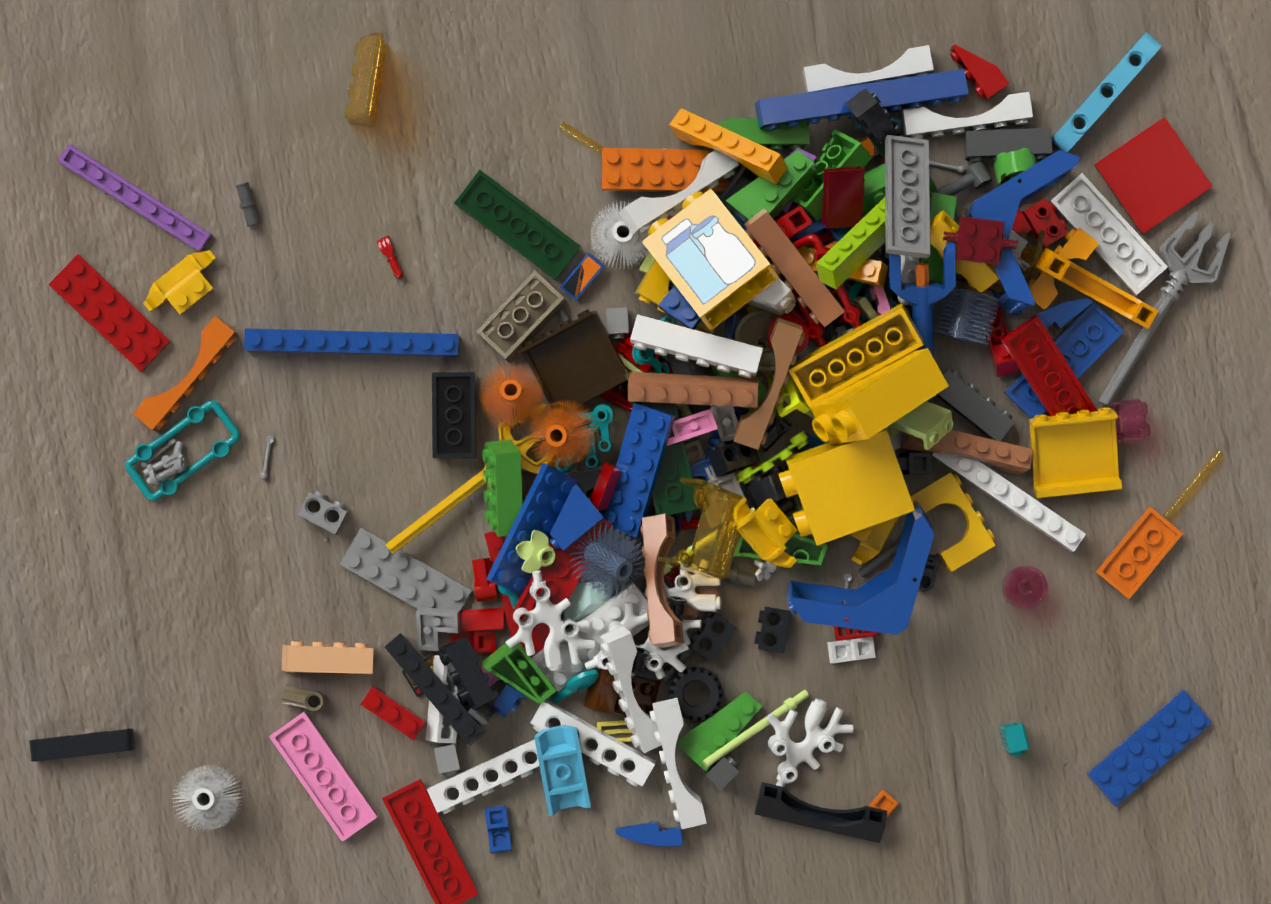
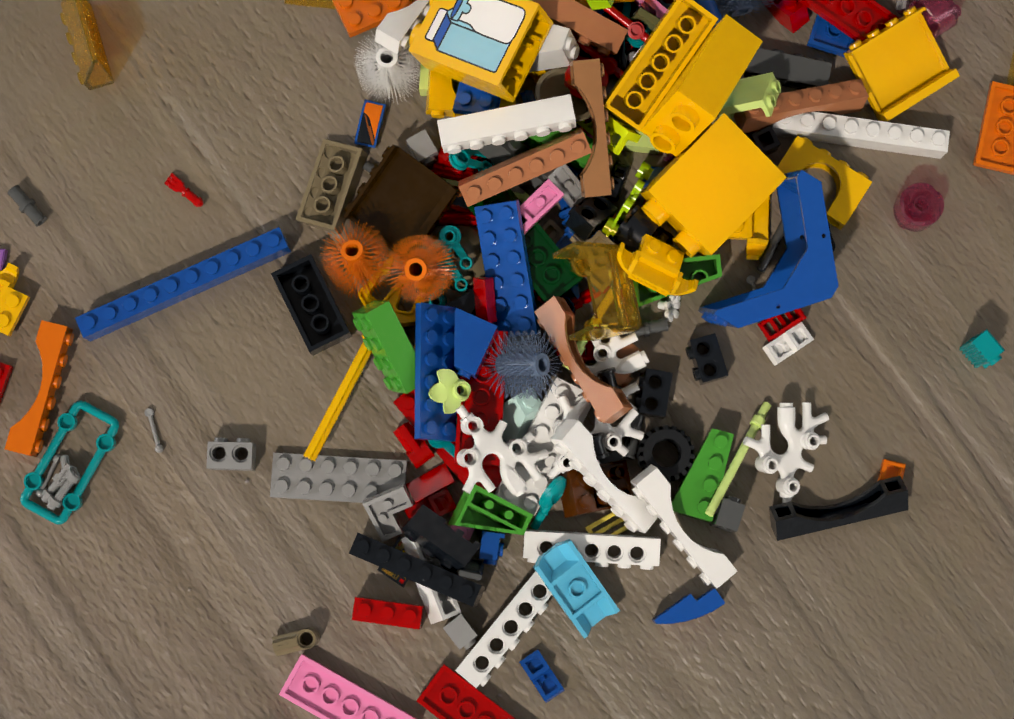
camera: 25 degrees left, 5 degrees down
(327, 659) = (300, 591): light nougat wedge -> none
(517, 225) = (287, 105): dark green plate -> none

